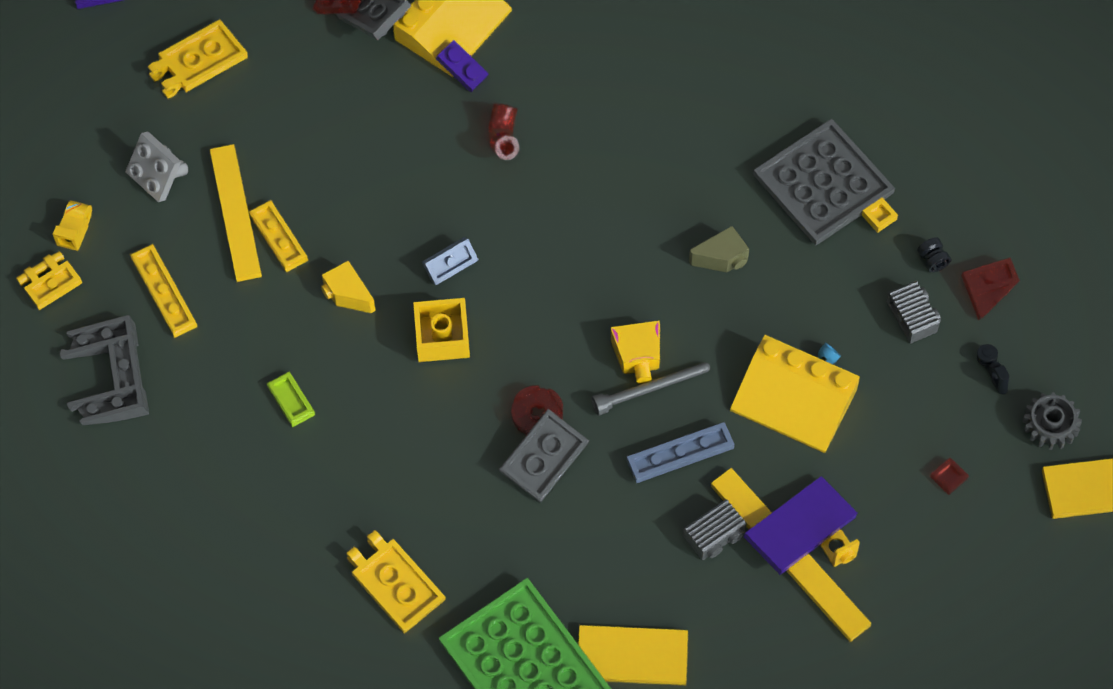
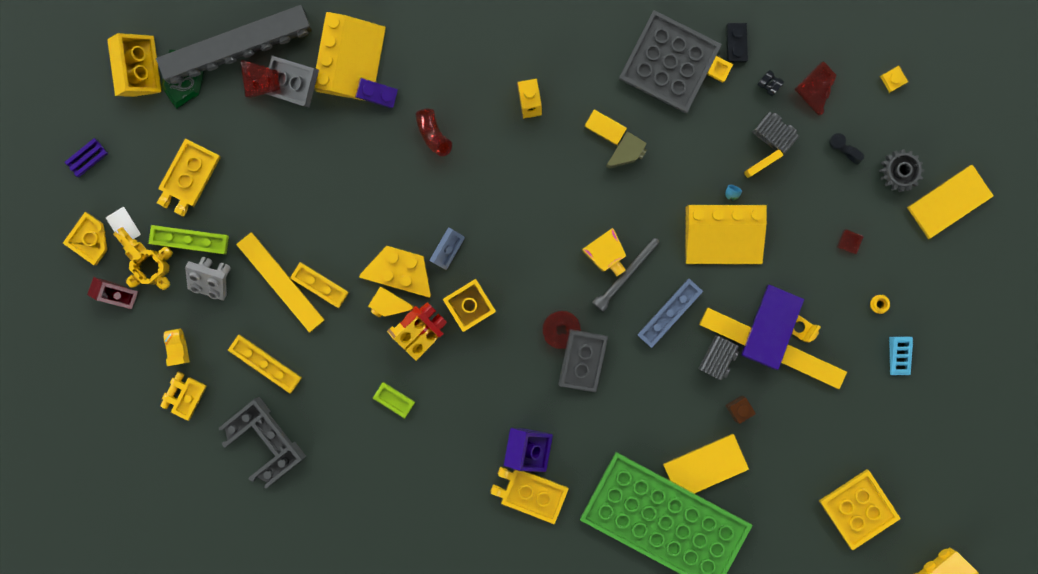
camera: 25 degrees left, 25 degrees up
(39, 135) = (112, 293): none -> dark red slope
(48, 71) = (88, 239): none -> yellow plate
(94, 78) = (122, 219): none -> white sticker
(94, 110) = (138, 253): none -> yellow piece
(159, 121) = (188, 239): none -> lime plate
(373, 332) = (417, 331): none -> hips
(380, 262) = (399, 270): none -> yellow wing
(421, 526) = (528, 450): none -> dark purple slope
(639, 138) = (529, 98): none -> yellow torso
(708, 215) = (605, 127): none -> yellow tile
(711, 601) = (740, 409): none -> reddish brown brick
(881, 337) = (763, 163): none -> yellow tile
(916, 198) = (737, 43): none -> black plate
(956, 557) = (885, 304): none -> yellow plate
(961, 616) = (908, 346): none -> medium azure slope
(1091, 319) = (894, 79): none -> yellow plate

